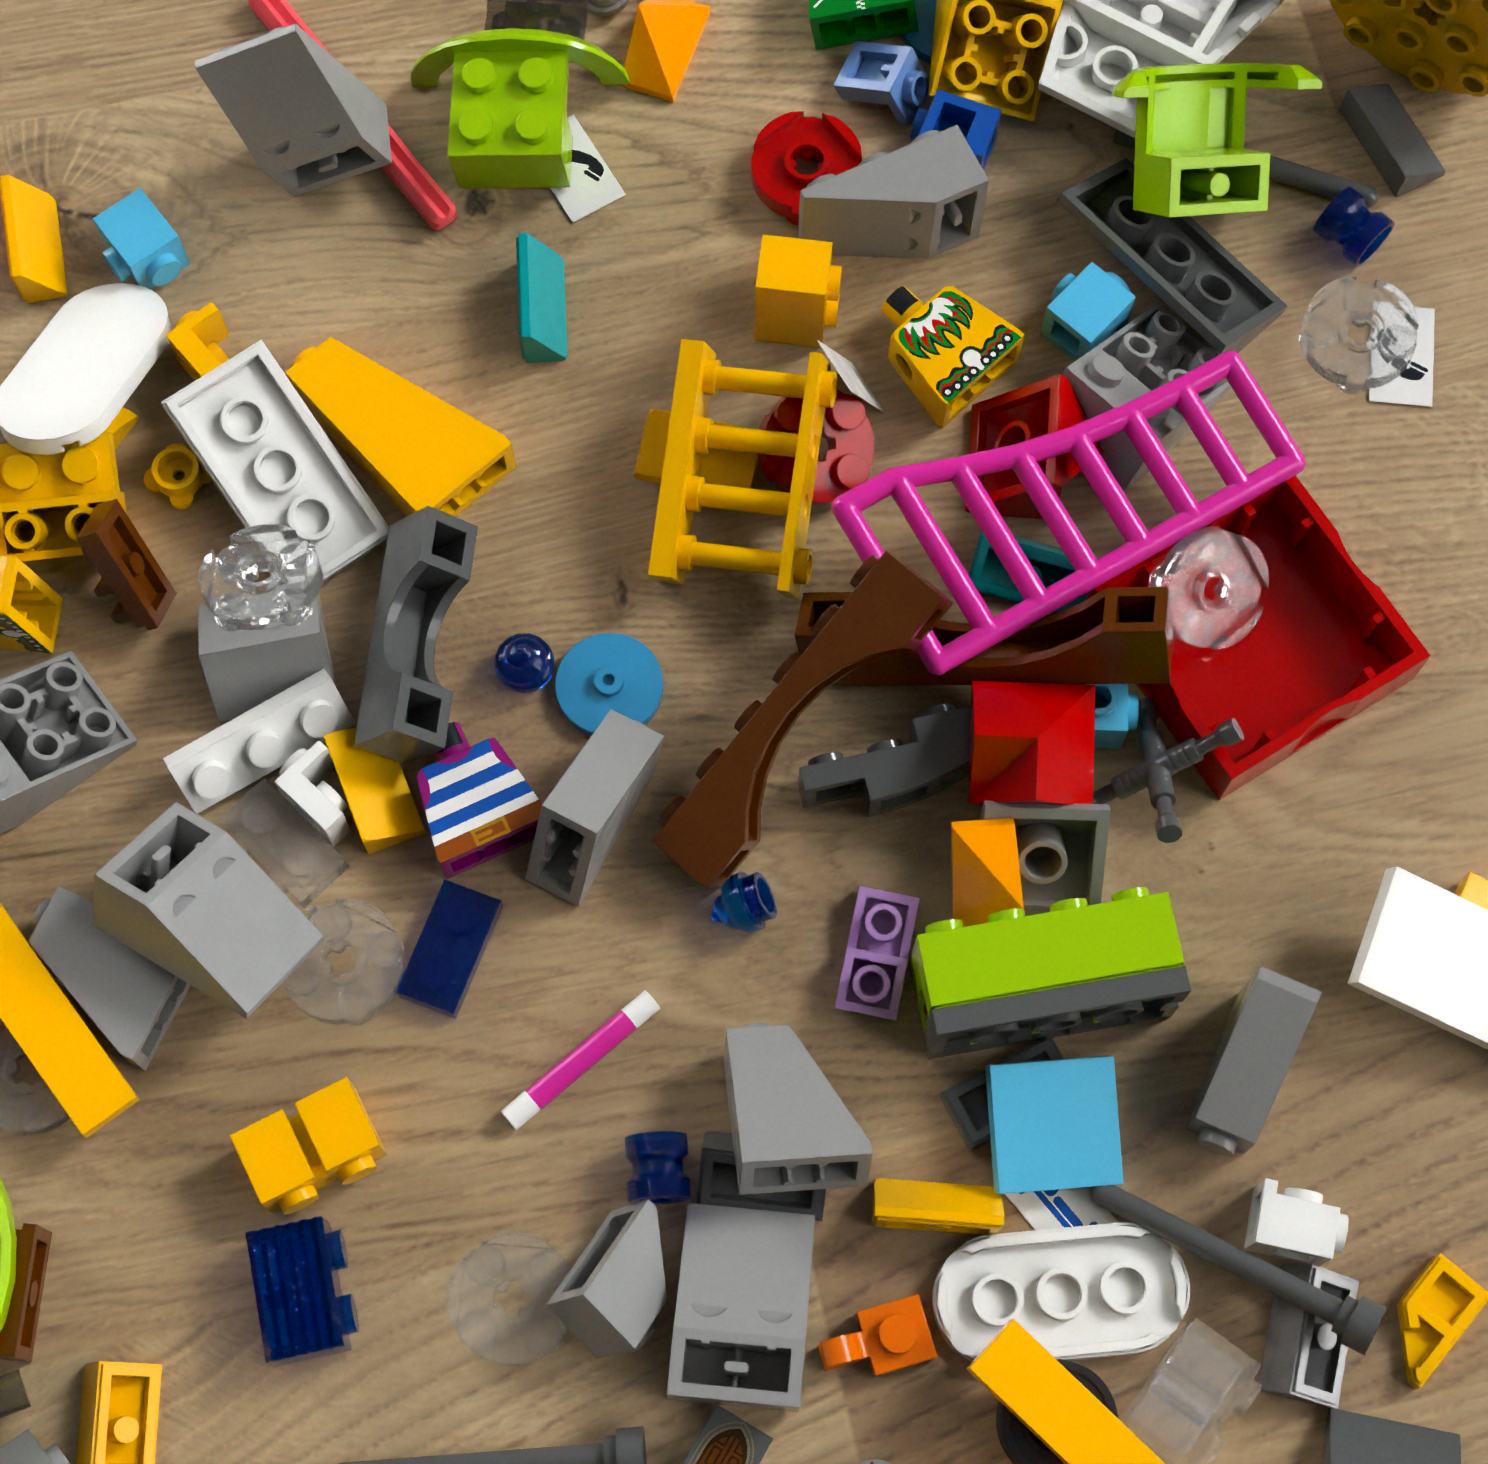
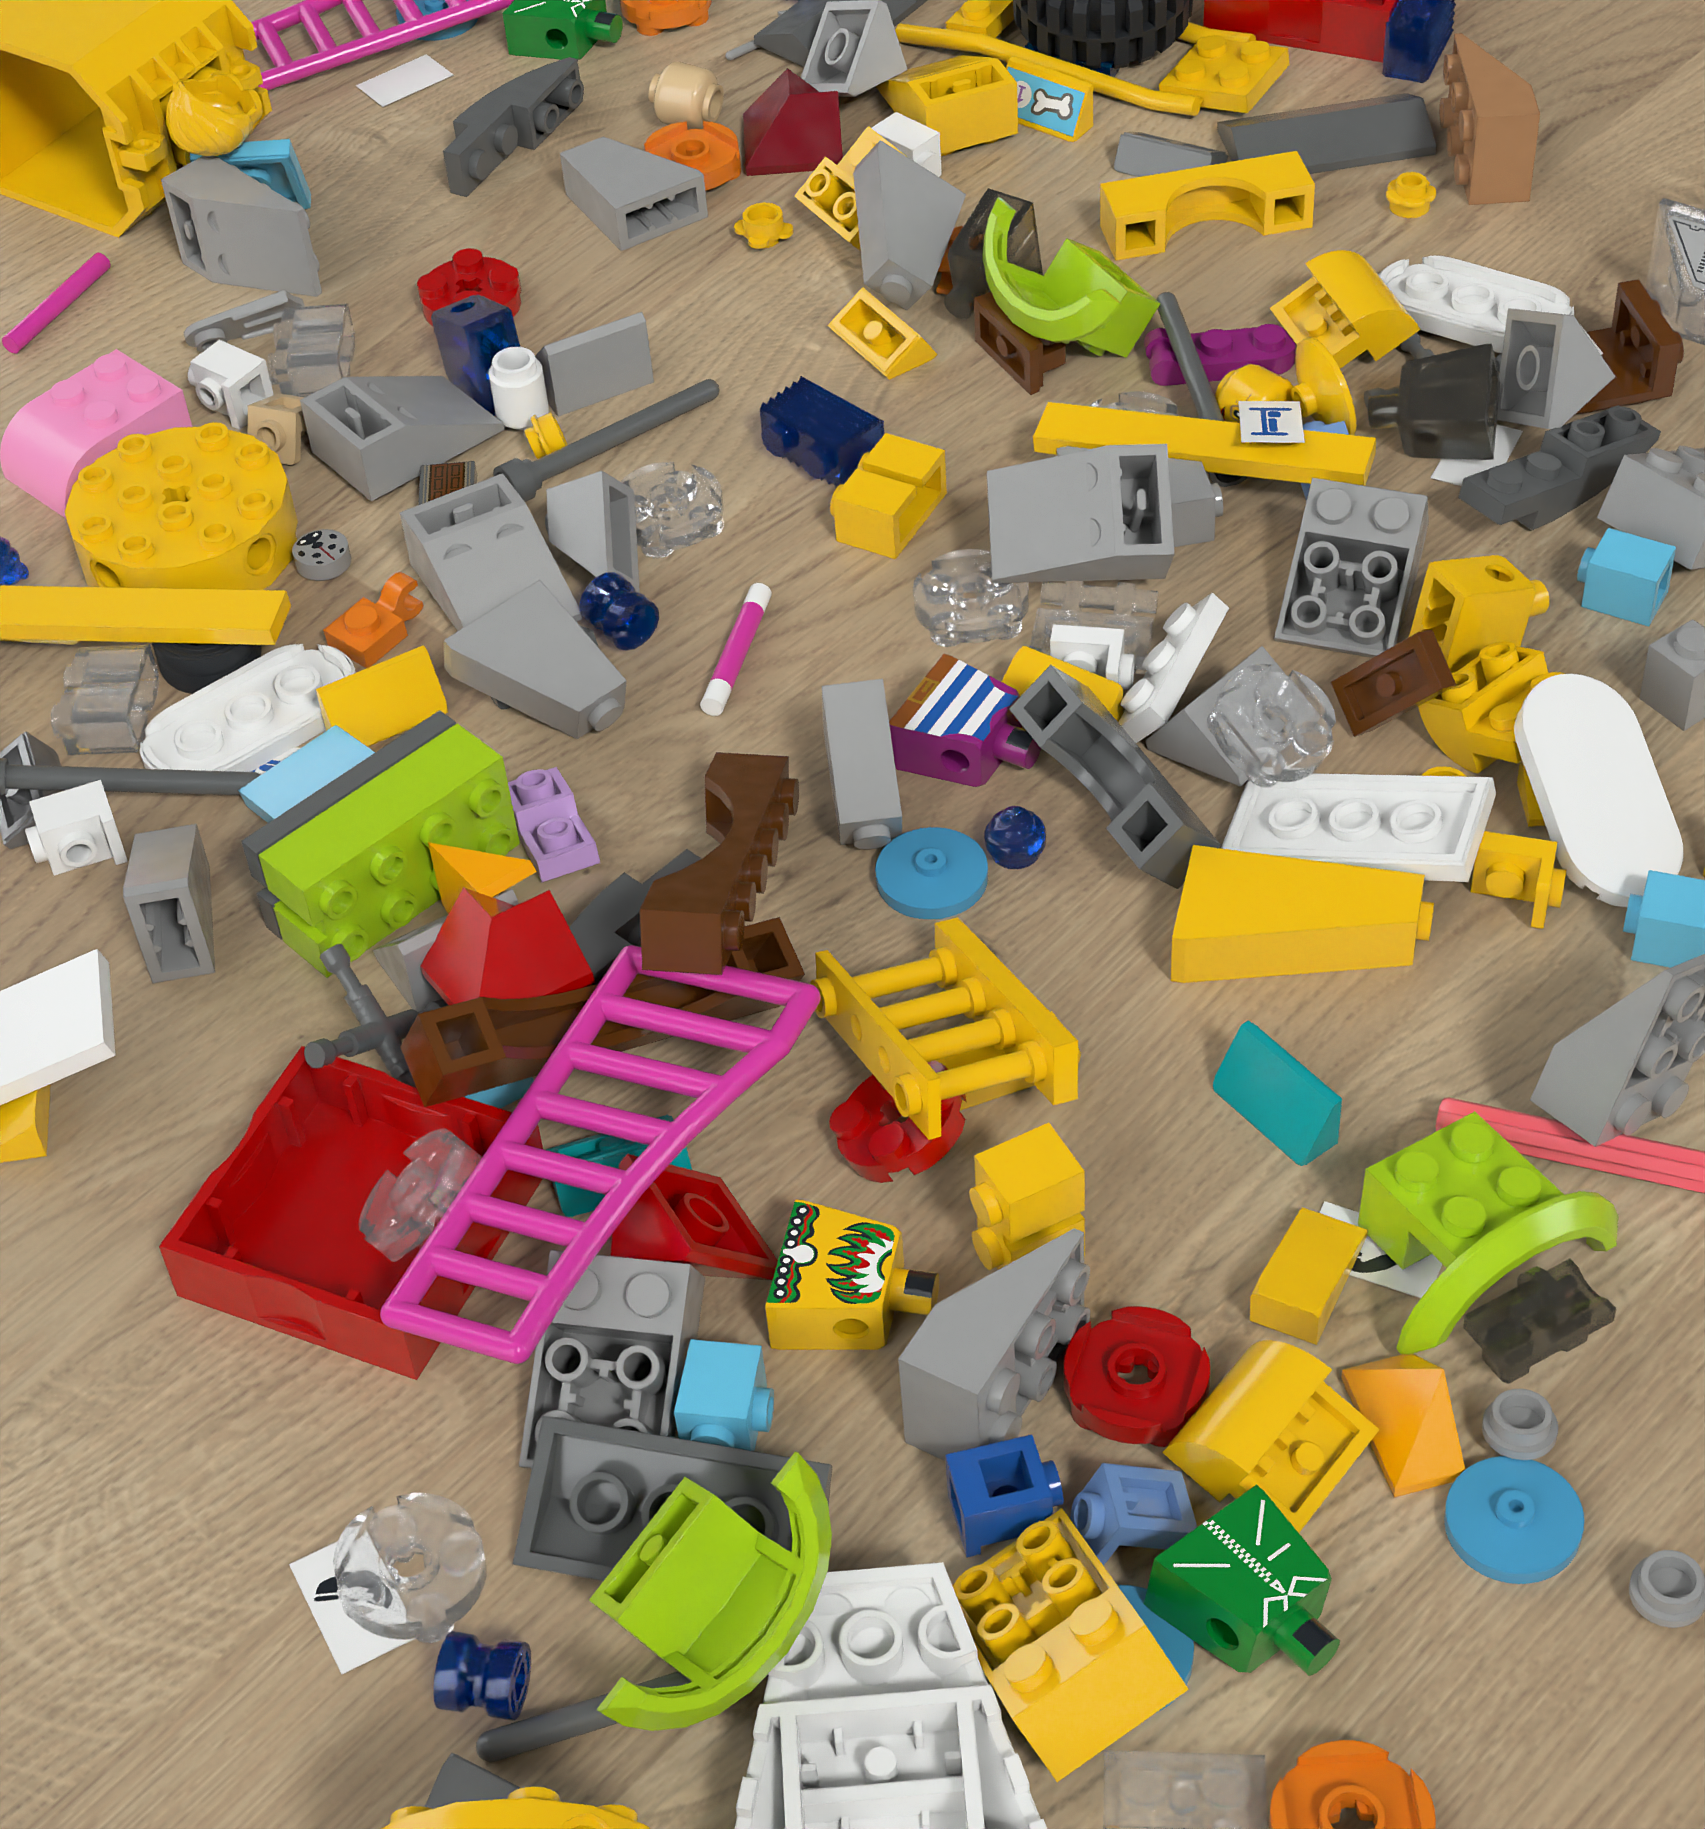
camera: 150 degrees right, 25 degrees down
(450, 949) = (896, 648): clear blue plate -> none
(637, 165) = (1306, 1275): none -> yellow slope
(745, 902) = (680, 788): clear blue plate -> none
(766, 66) = (1273, 1428): none -> yellow brick
(851, 376) = (911, 1174): white sticker -> none

